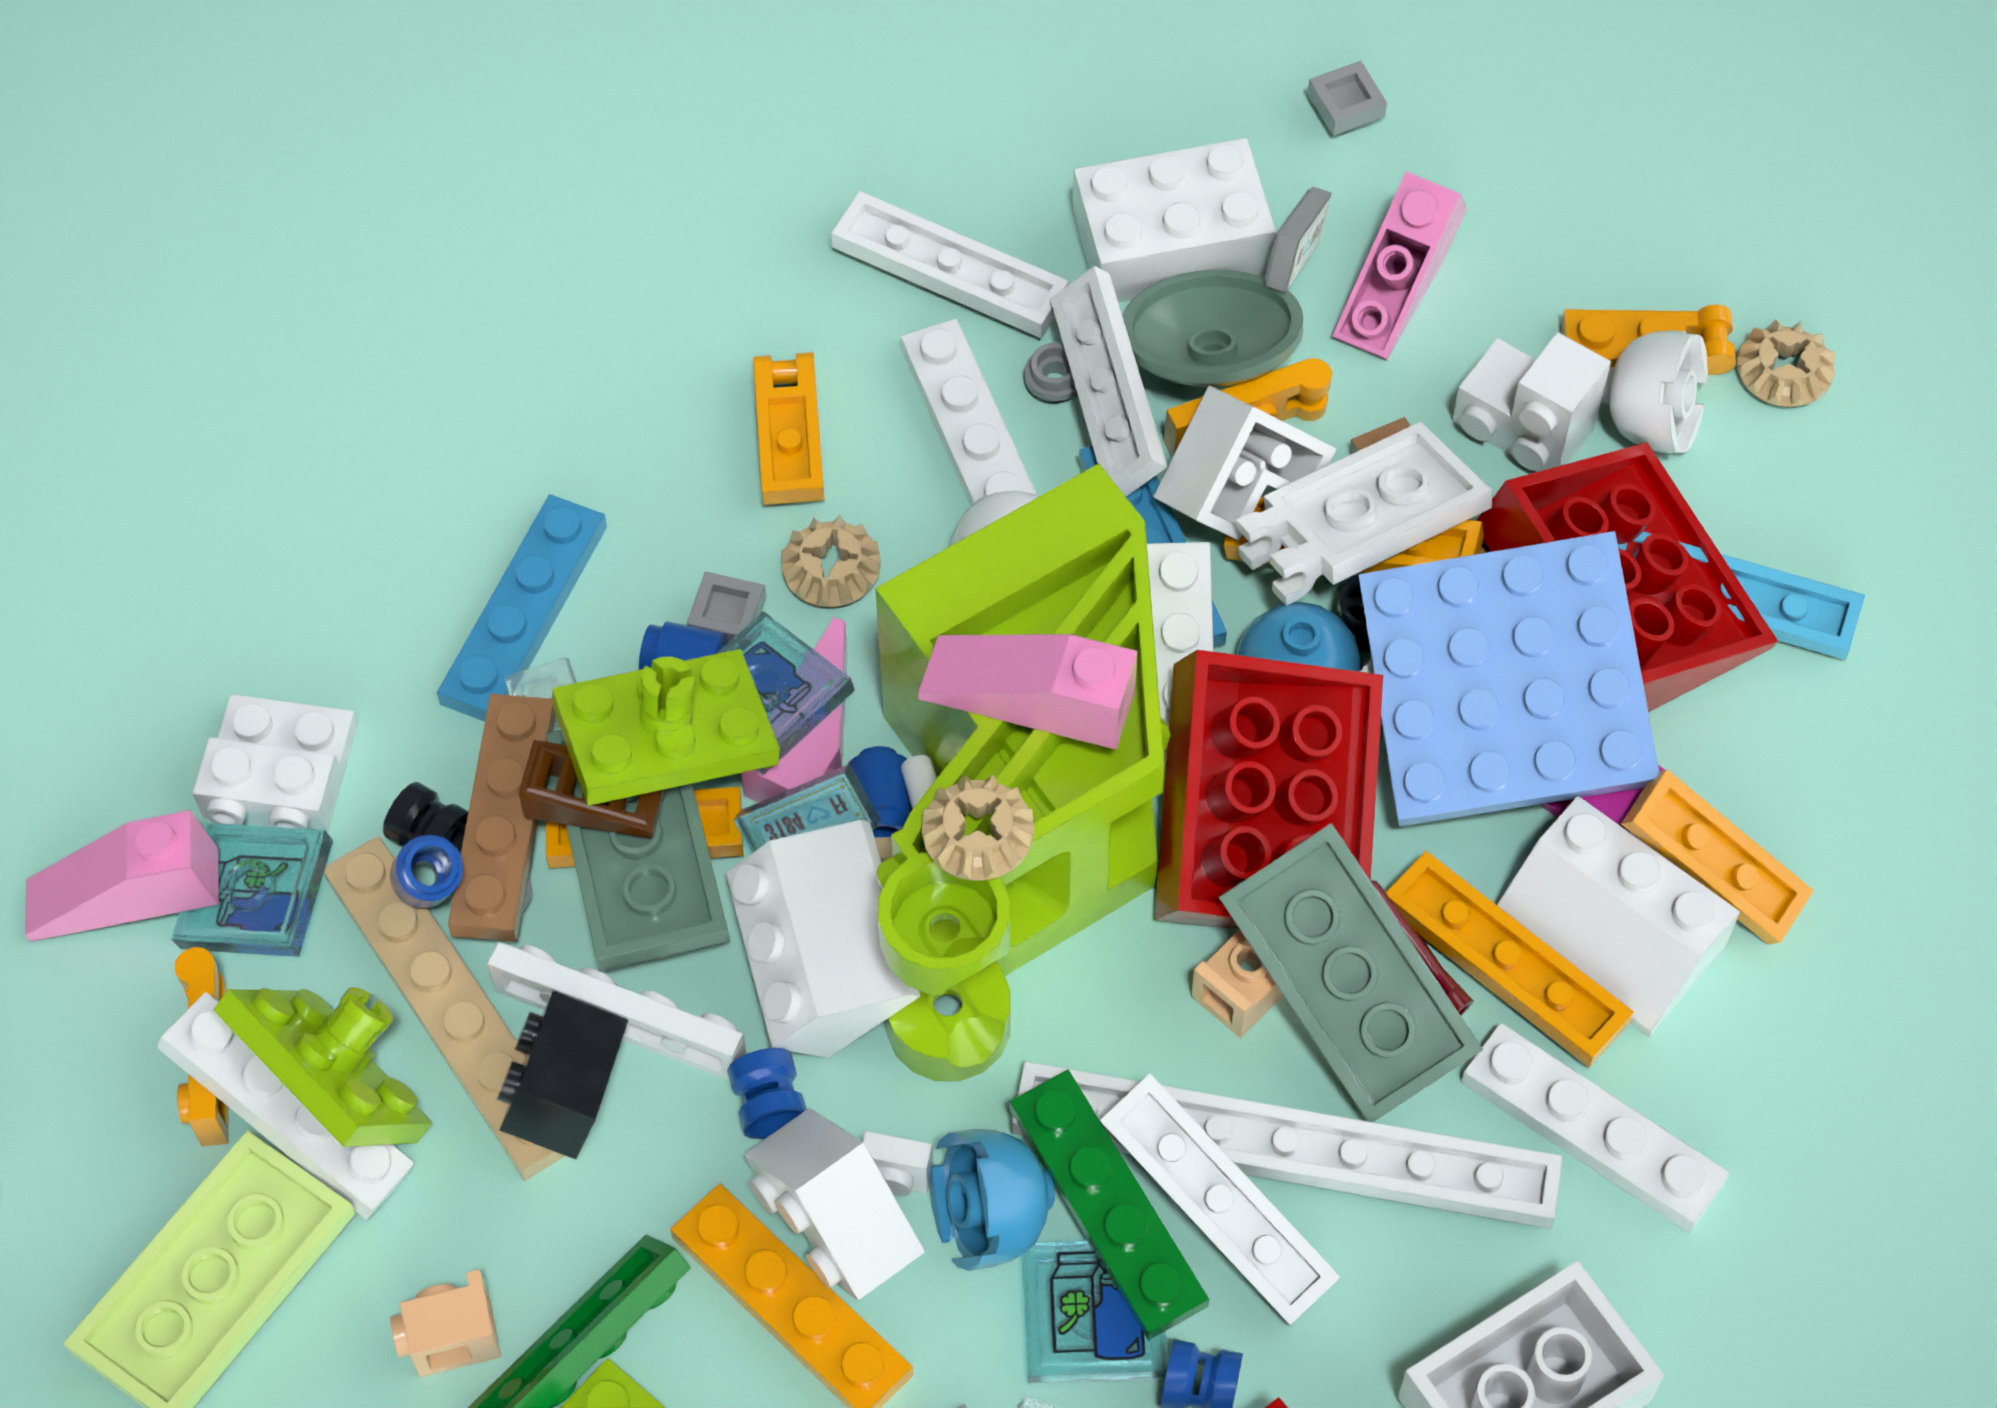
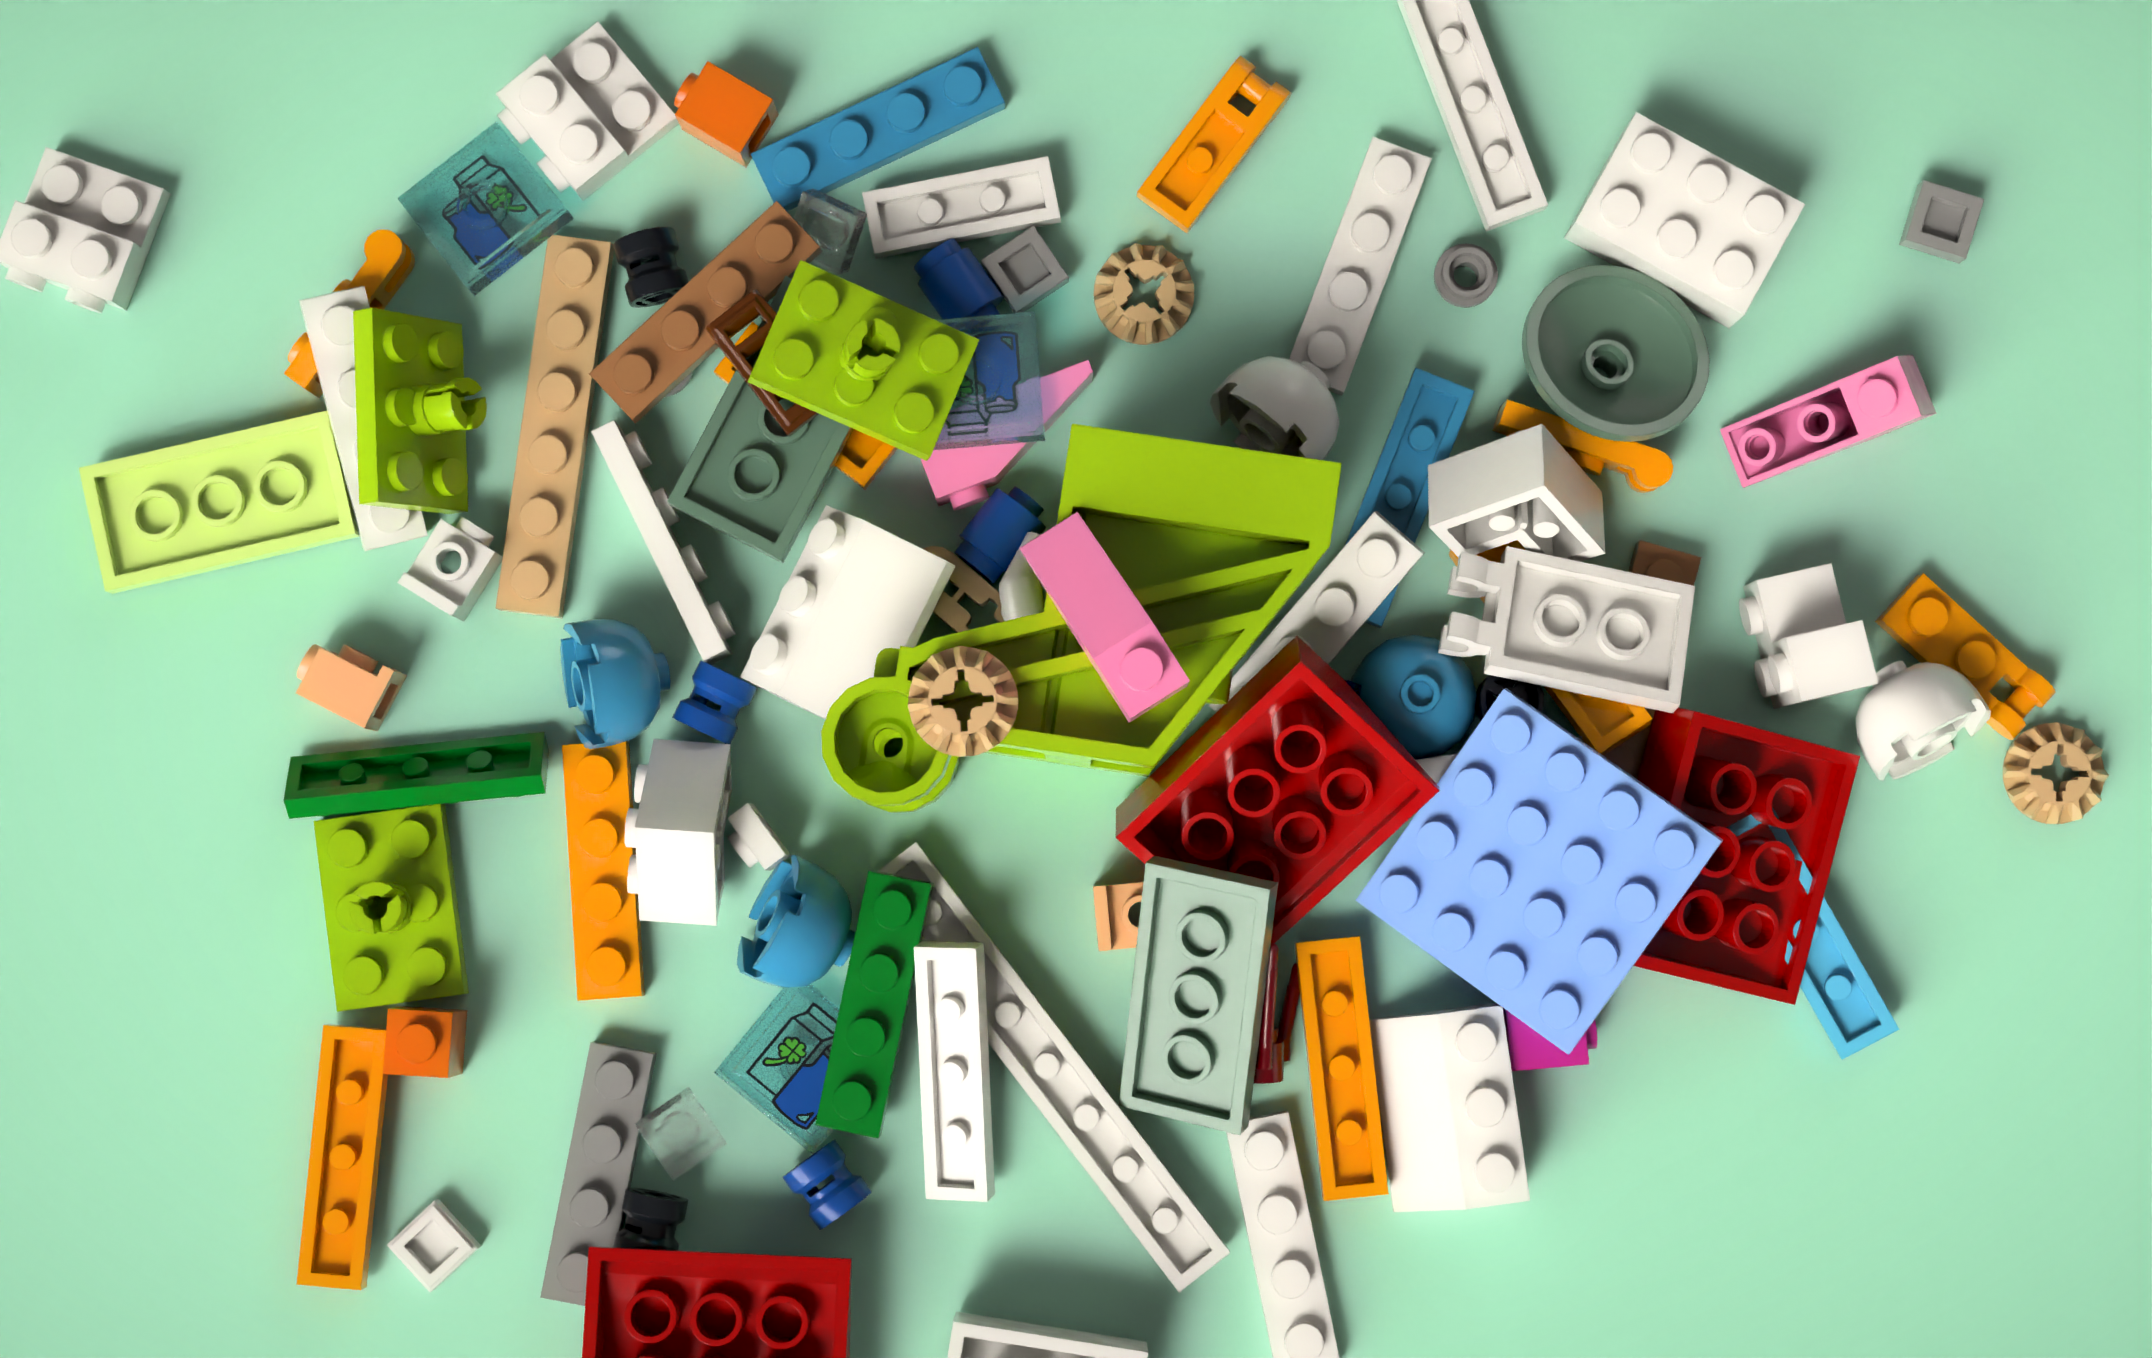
camera: 40 degrees right, 25 degrees up
(125, 877) = (394, 125): bright pink slope -> none
(391, 678) = (724, 112): none -> orange brick
(437, 854) = (596, 335): blue brick -> none
(464, 1187) = (460, 590): none -> white brick
(563, 1075) = (573, 567): black brick -> none
(643, 594) = (961, 207): none -> white plate
(664, 1141) = (612, 680): none -> dark azure cylinder
(807, 807) = (922, 513): clear light blue tile -> none
(1108, 380) = (1484, 334): white plate -> none
(1297, 239) = (1761, 330): light grey tile -> none
(1718, 856) = (1562, 1139): light orange plate -> none

